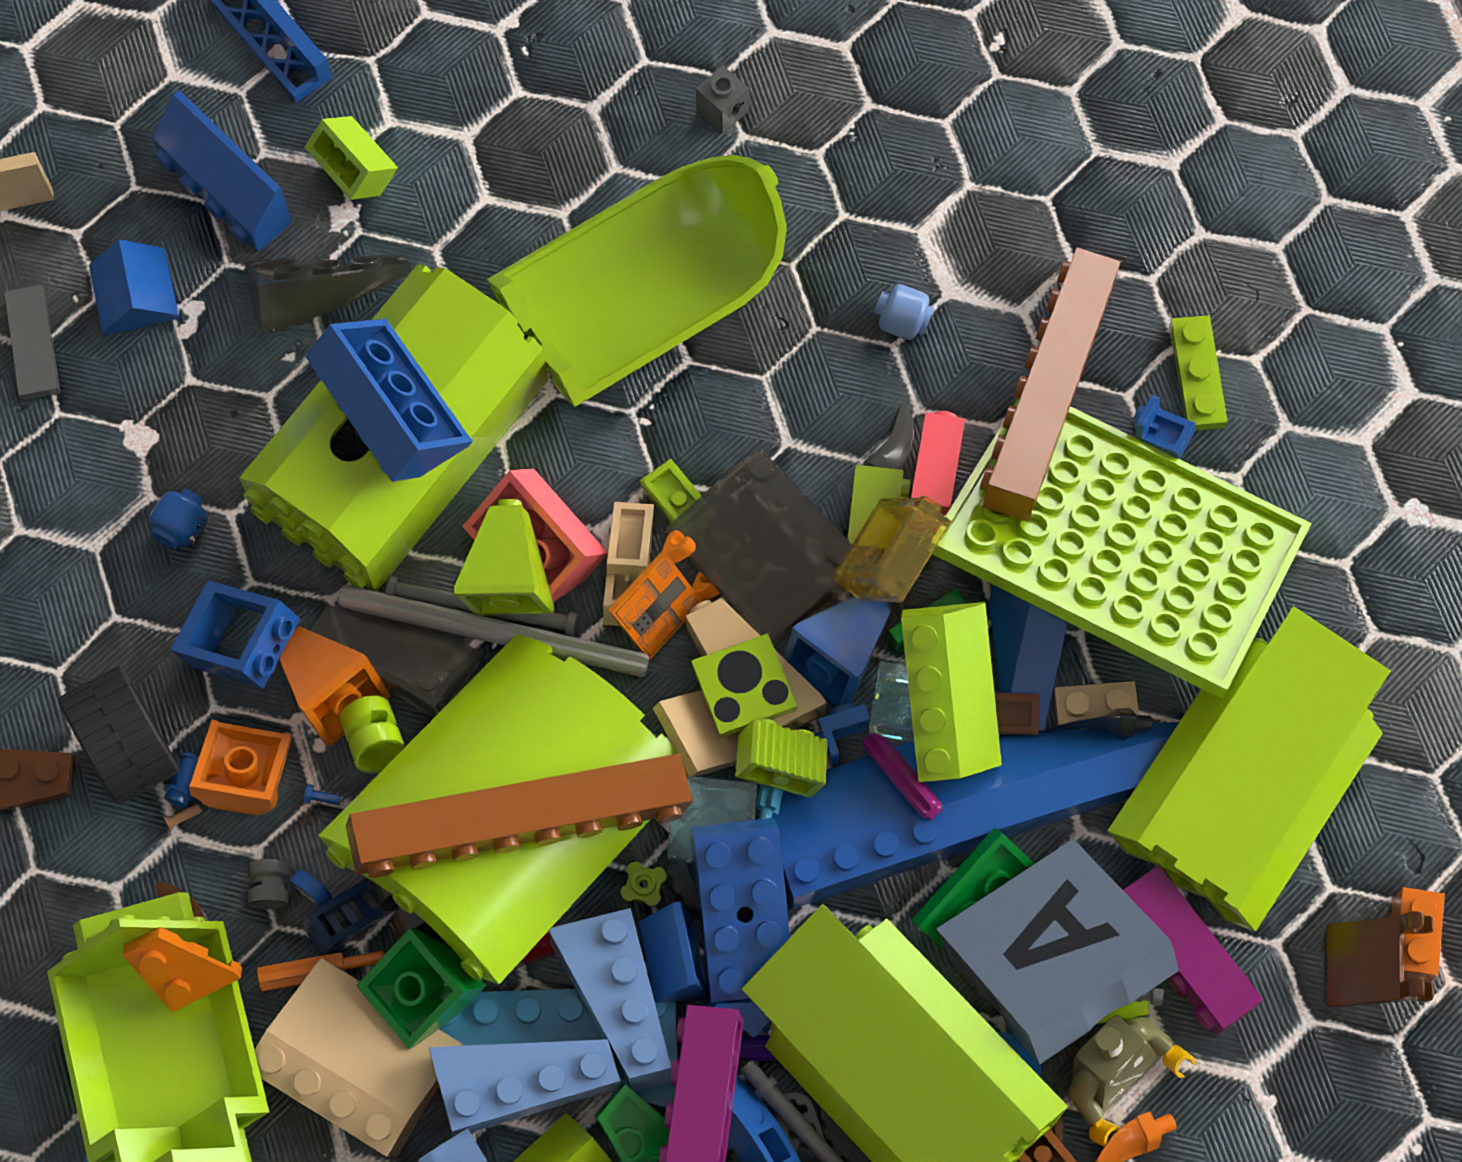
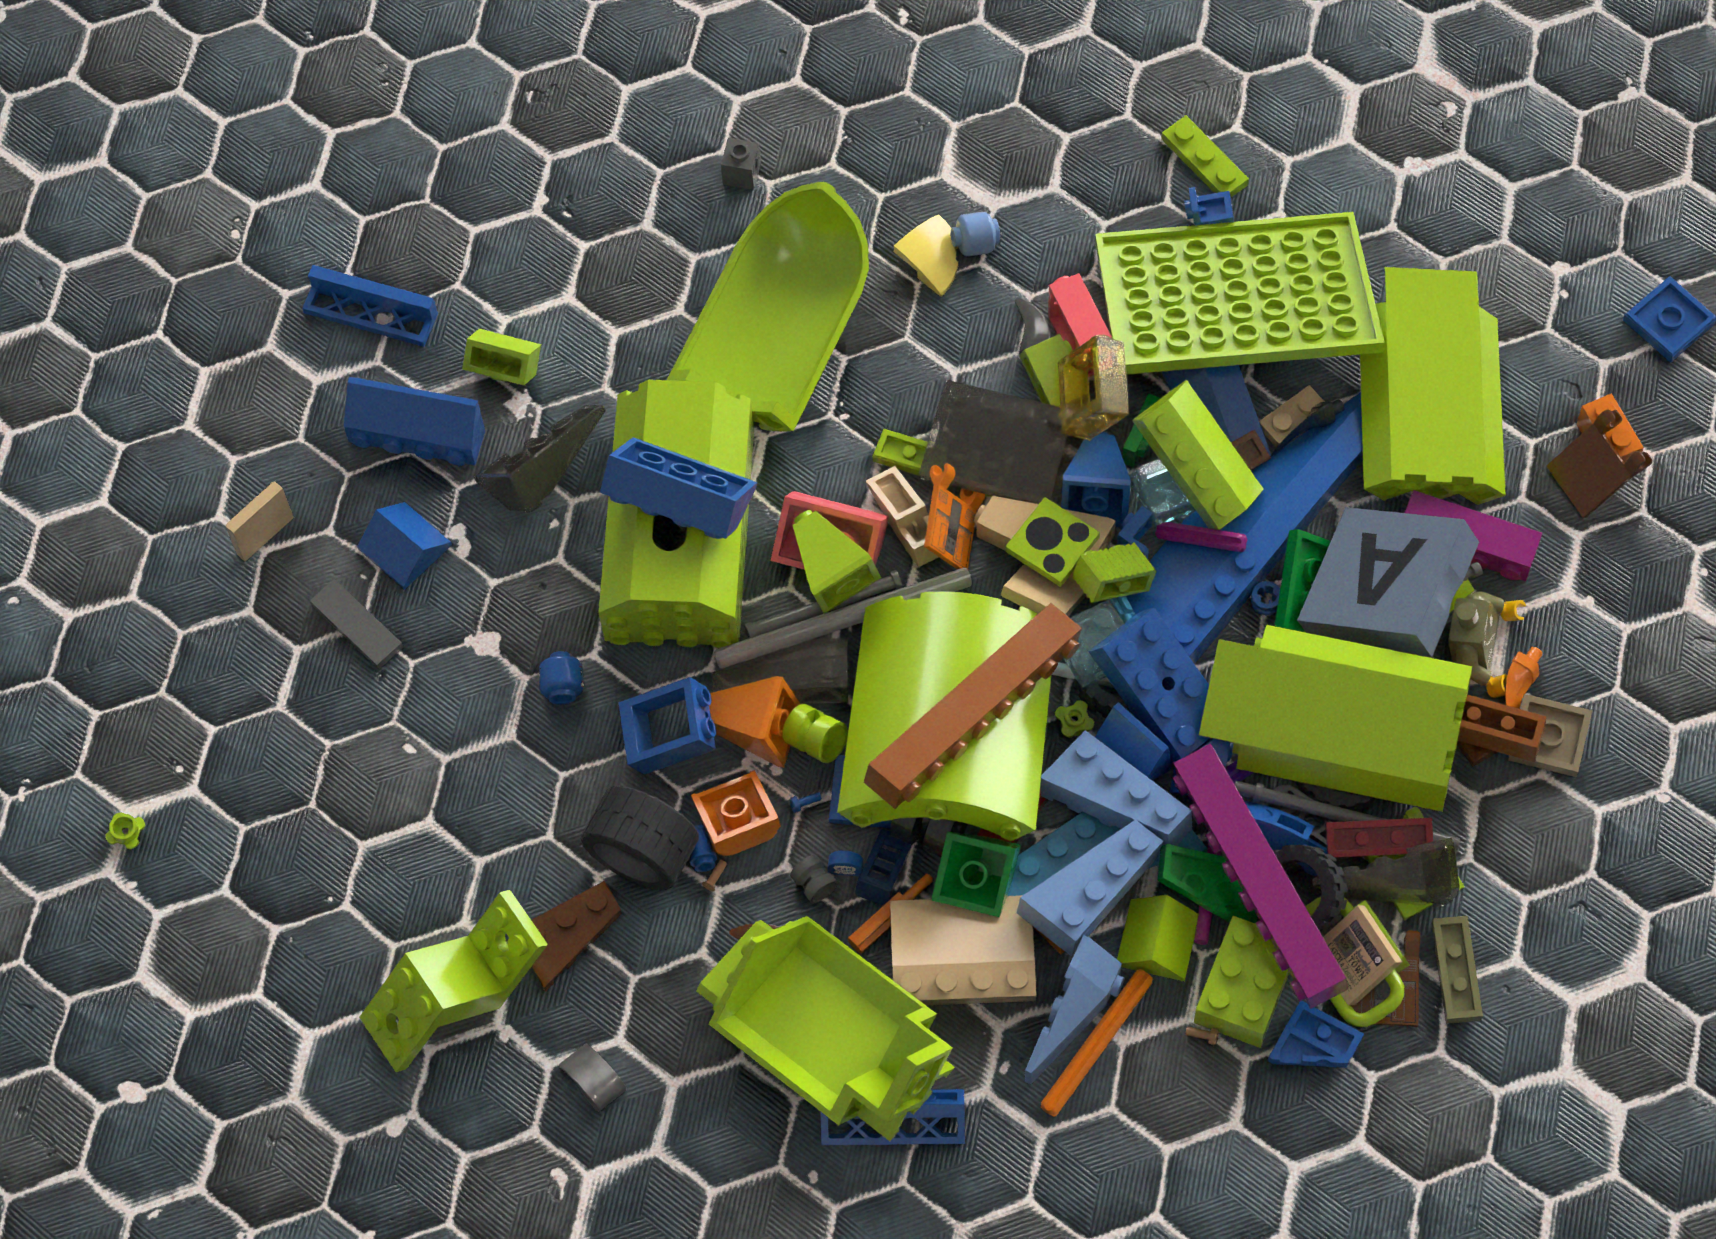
camera: 30 degrees left, 5 degrees down
(177, 968) = (805, 958): orange wing -> none
(847, 304) = (930, 253): none -> light yellow brick
(917, 879) = (1262, 588): none -> blue bush
(1051, 385) = (1117, 219): brick -> none

